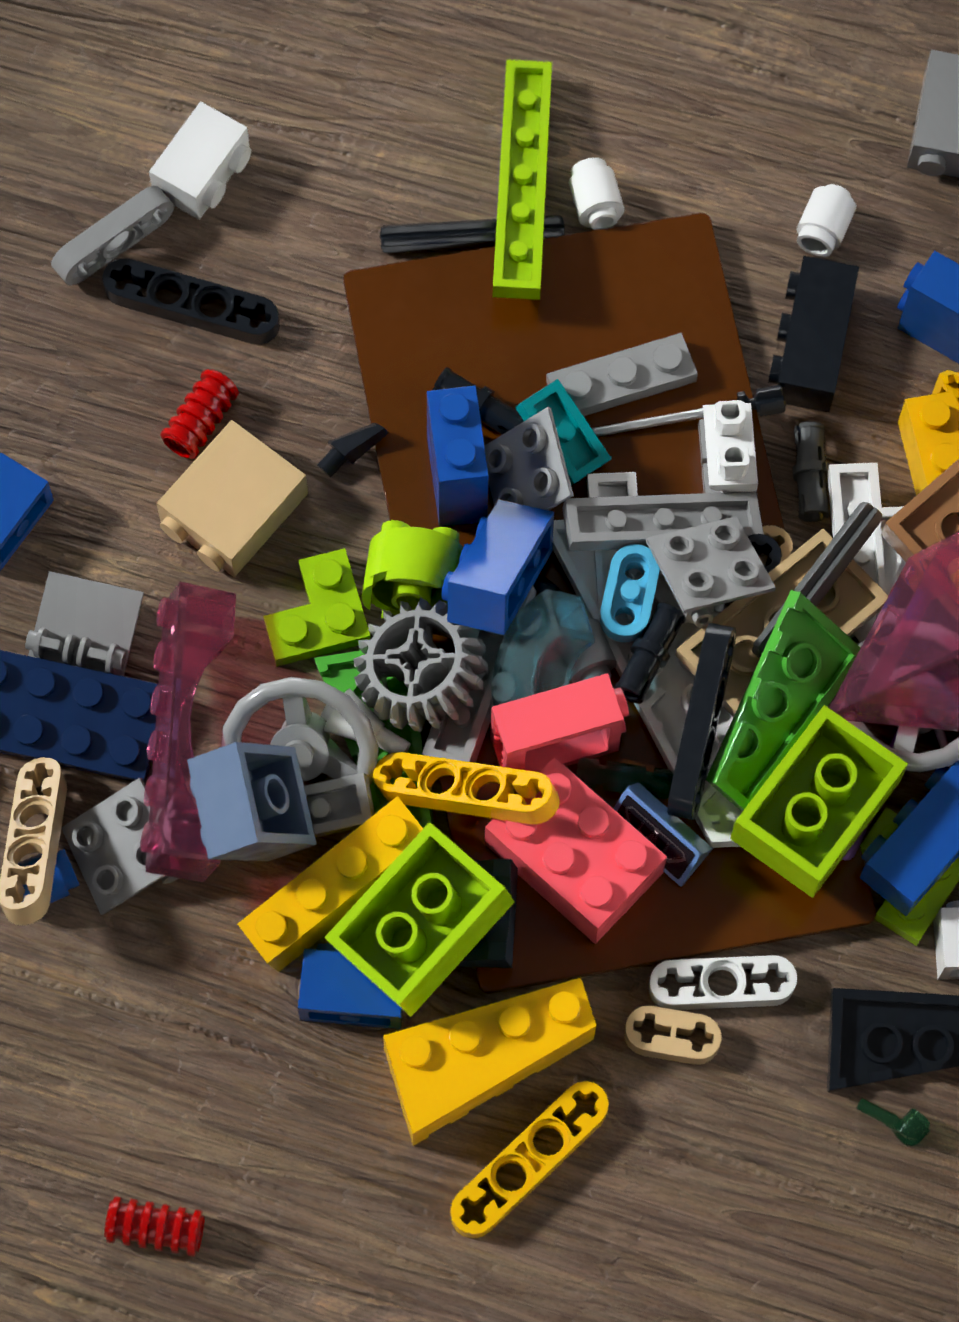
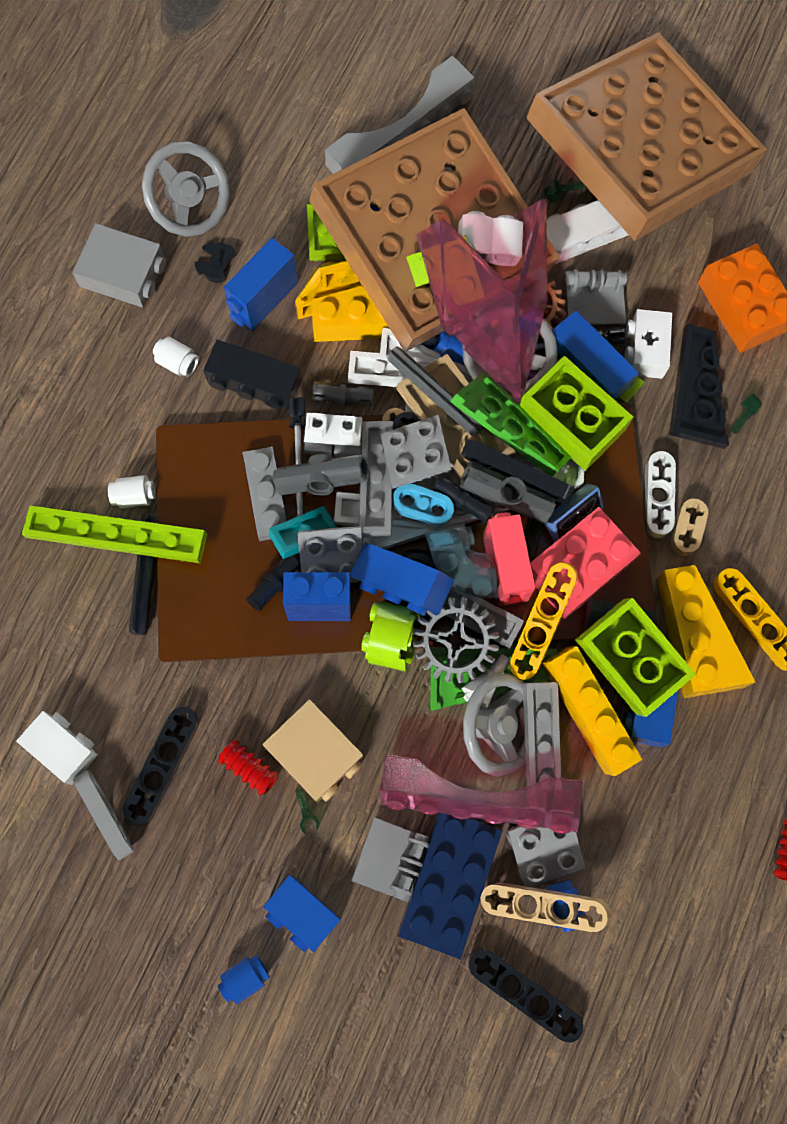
camera: 85 degrees left, 5 degrees up
(140, 507) = (305, 810): none -> clear green hand
(251, 802) = (550, 755): sand blue brick -> none
(329, 621) = (403, 697): lime plate -> none
(351, 447) = (286, 670): black bar -> none
(654, 439) = (321, 474): none -> dark grey piece
(671, 678) = (524, 500): none -> dark grey piece

